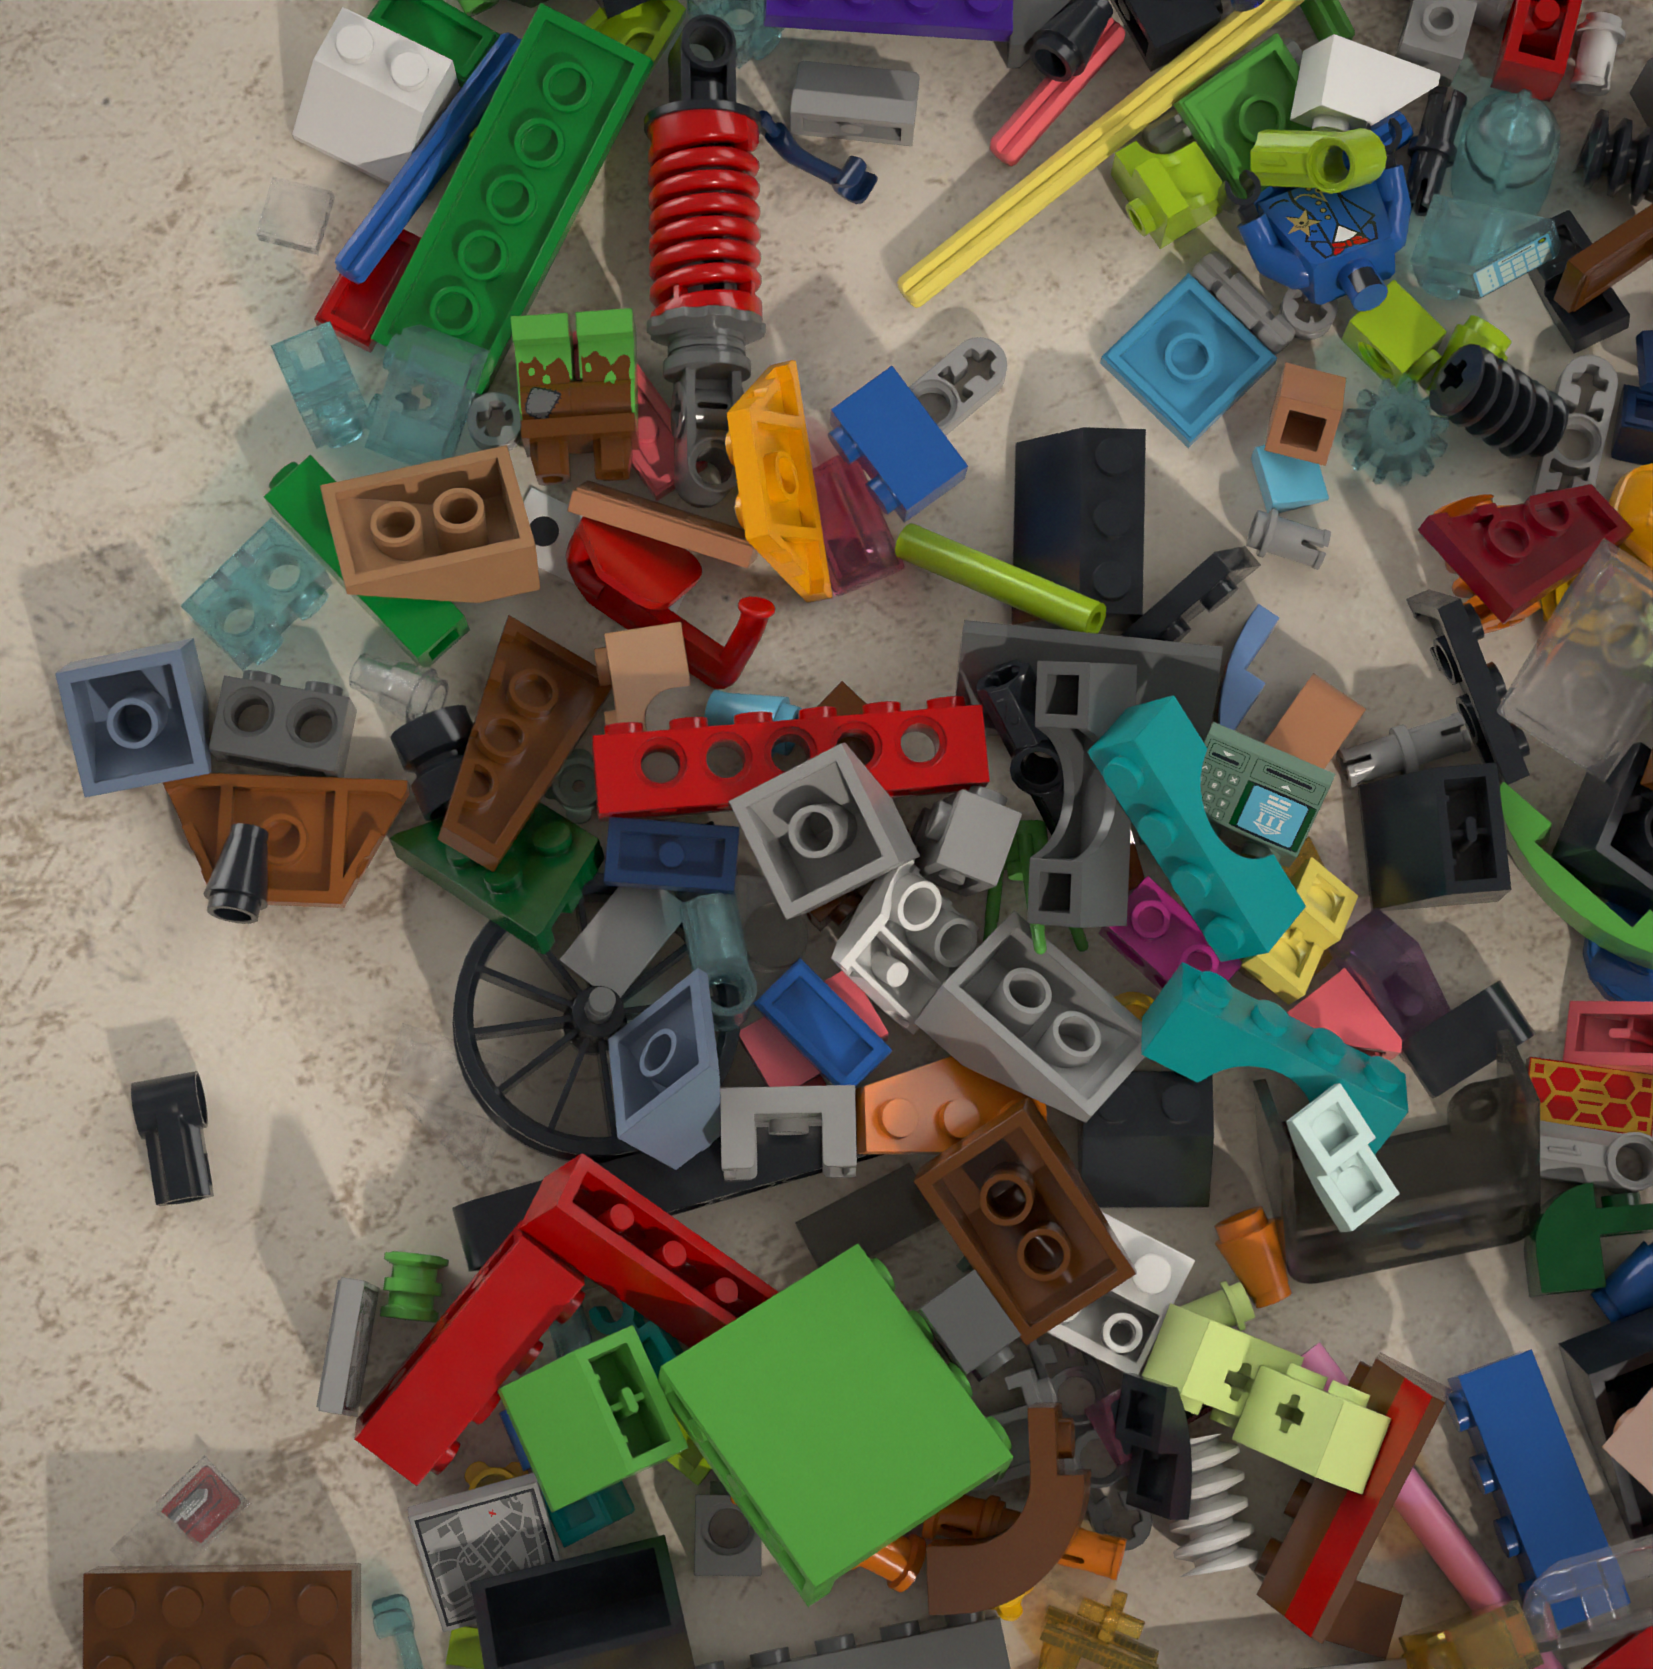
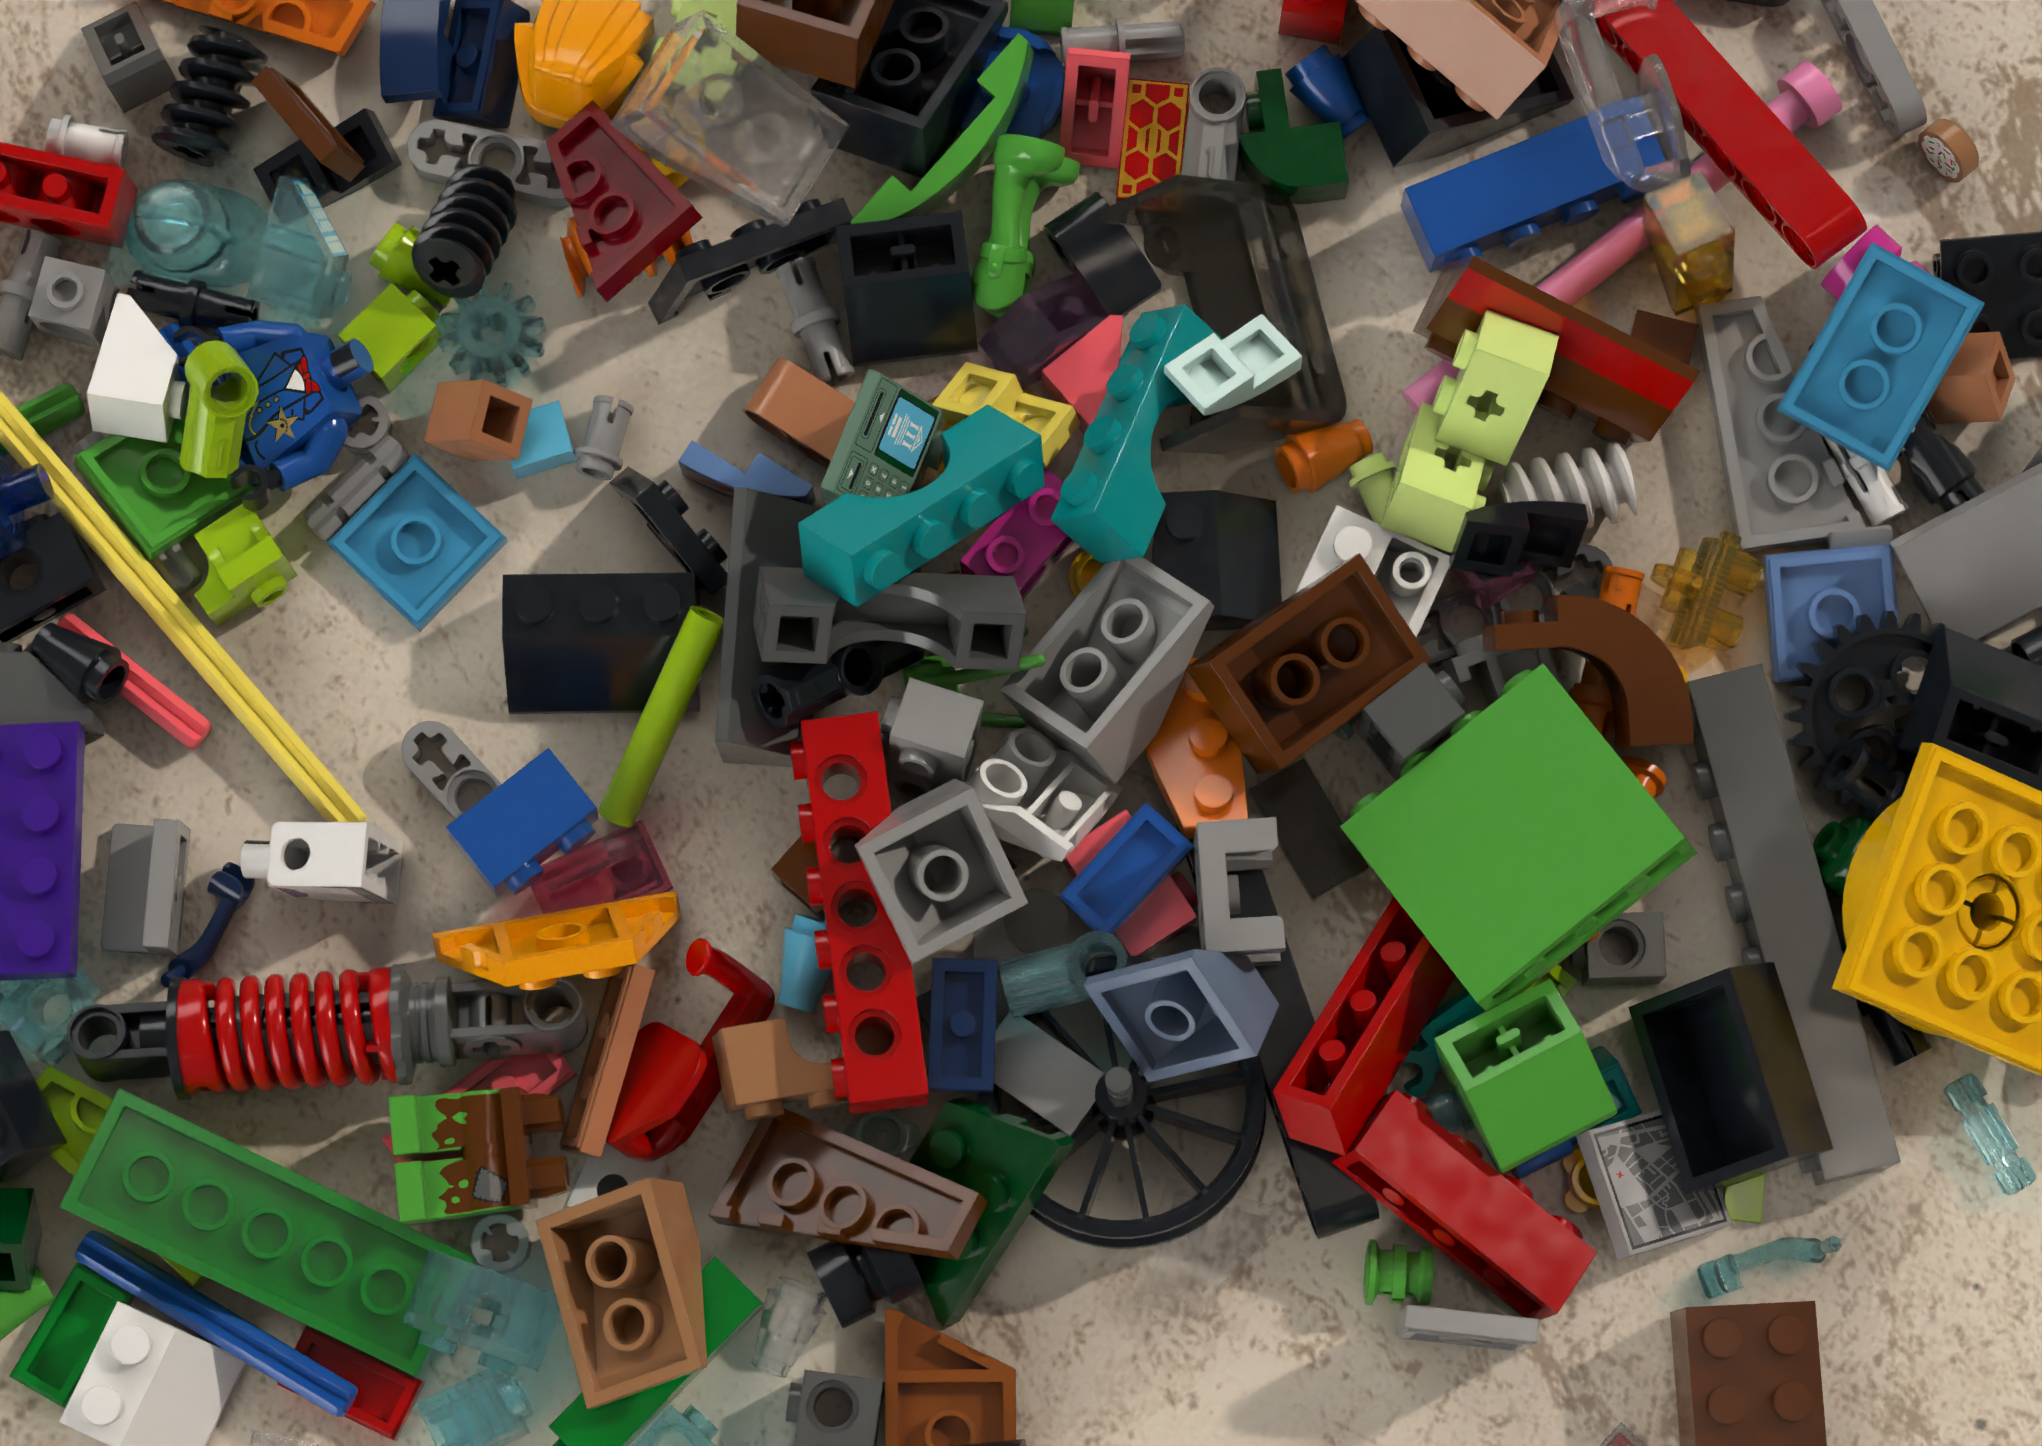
camera: 90 degrees left, 0 degrees up
(868, 265) = (327, 862): none -> white torso
(1465, 940) = (1021, 172): none -> bright green piece

